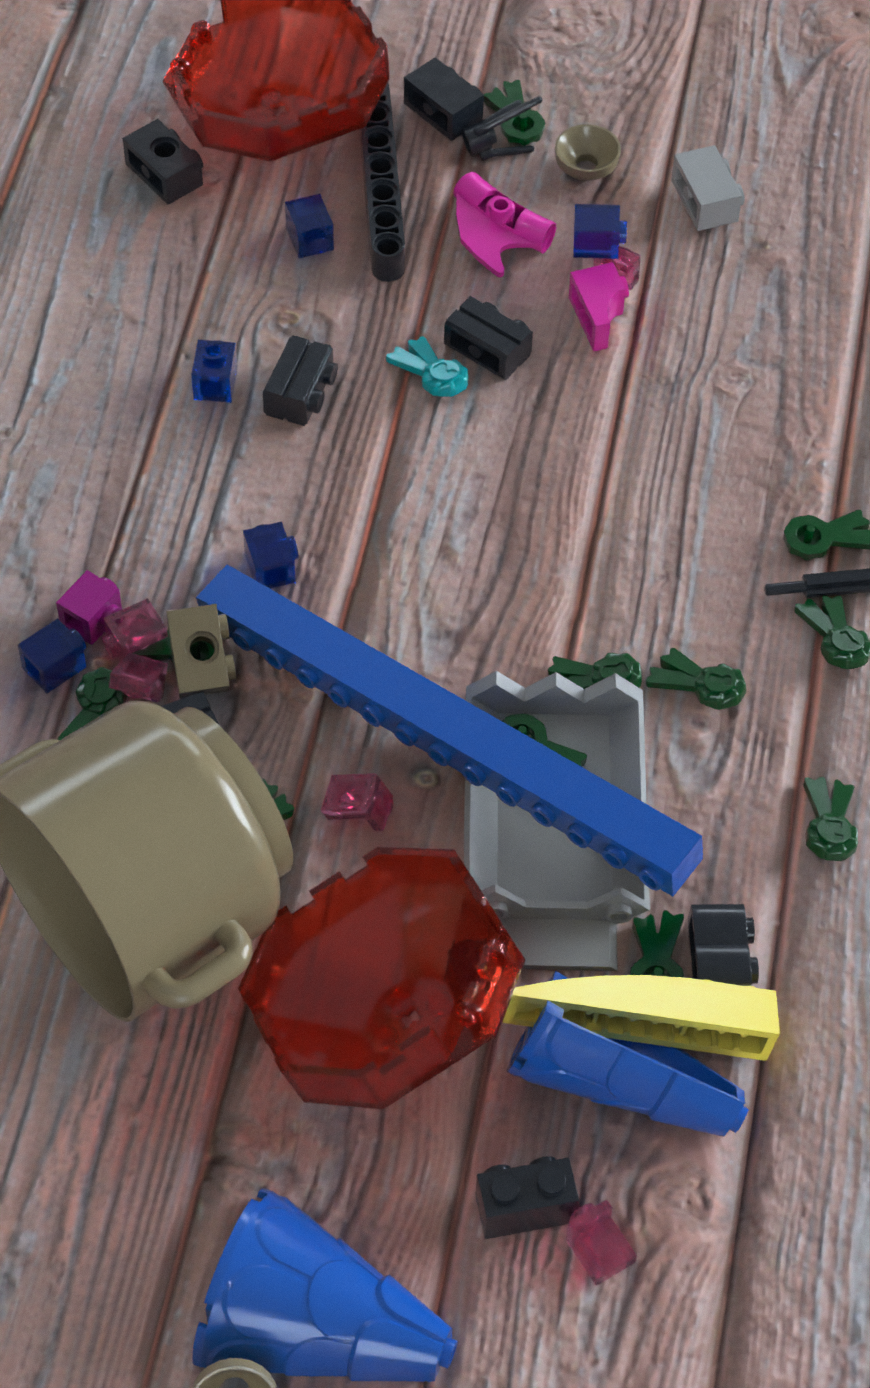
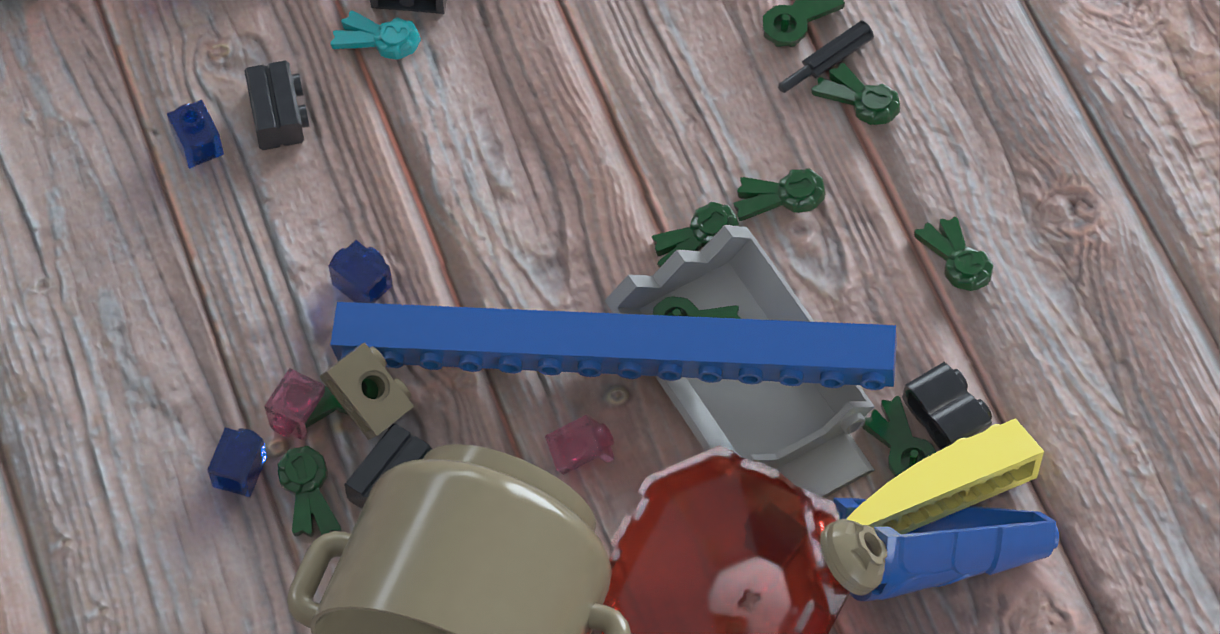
camera: 30 degrees left, 5 degrees up
(87, 604) = (239, 400): magenta brick -> none
(139, 677) = (330, 440): clear pink bracket -> none
(493, 1014) = (854, 555): none -> dark tan piece

